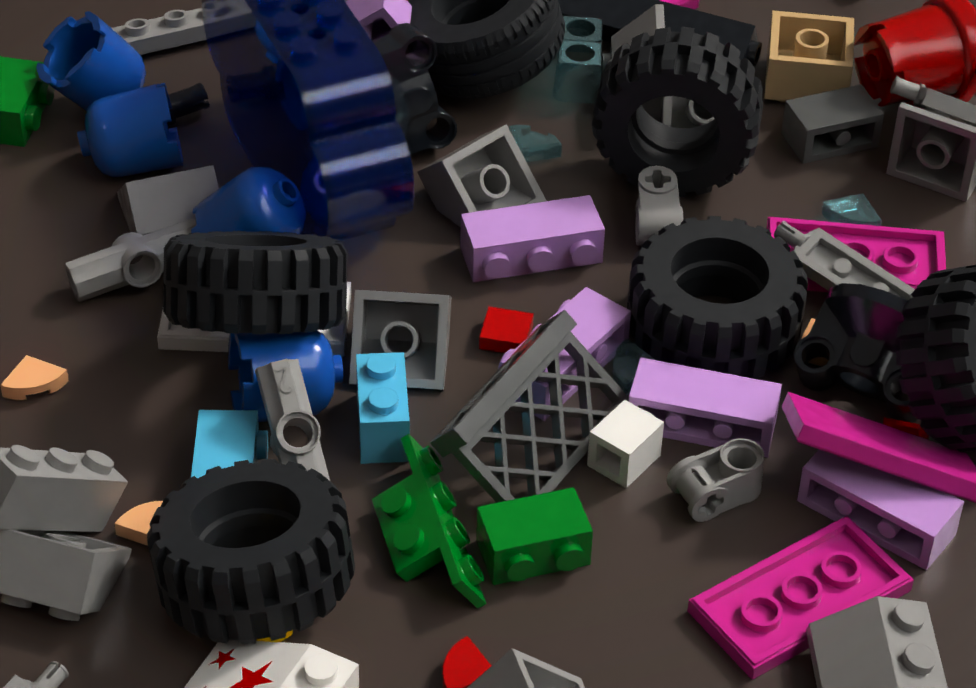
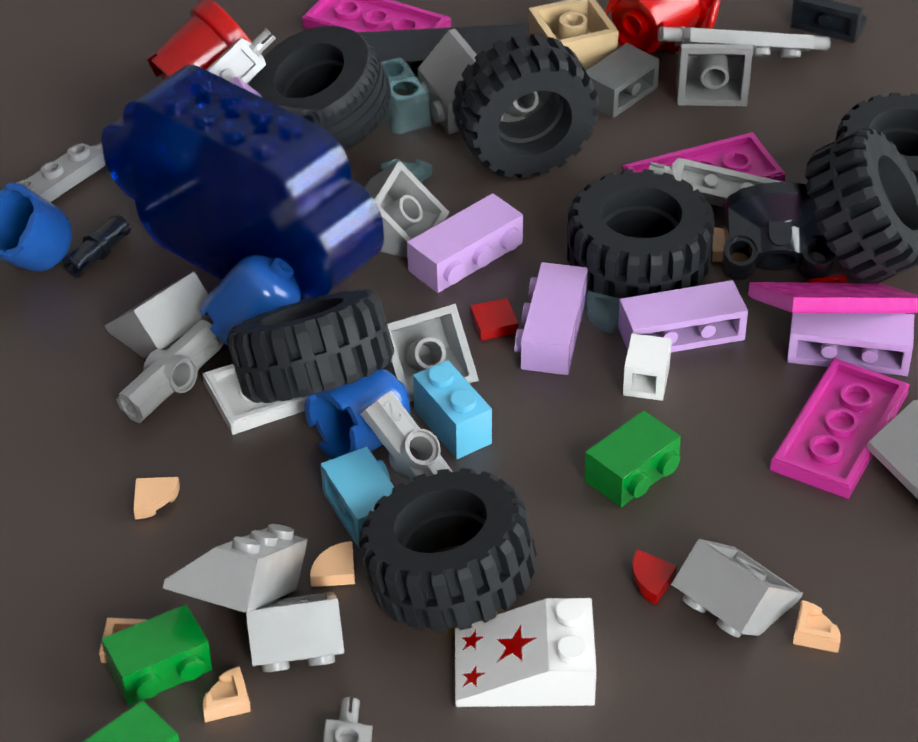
camera: 25 degrees left, 0 degrees up
(131, 133) = (95, 271): blue cylinder -> none
(422, 526) = (544, 486): green bracket -> none
(514, 381) = (549, 358): dark grey fence -> none
(657, 202) = (542, 187): light grey piece -> none
(721, 478) = (731, 364): light grey piece -> none
(852, 210) = (677, 139): clear light blue tile -> none

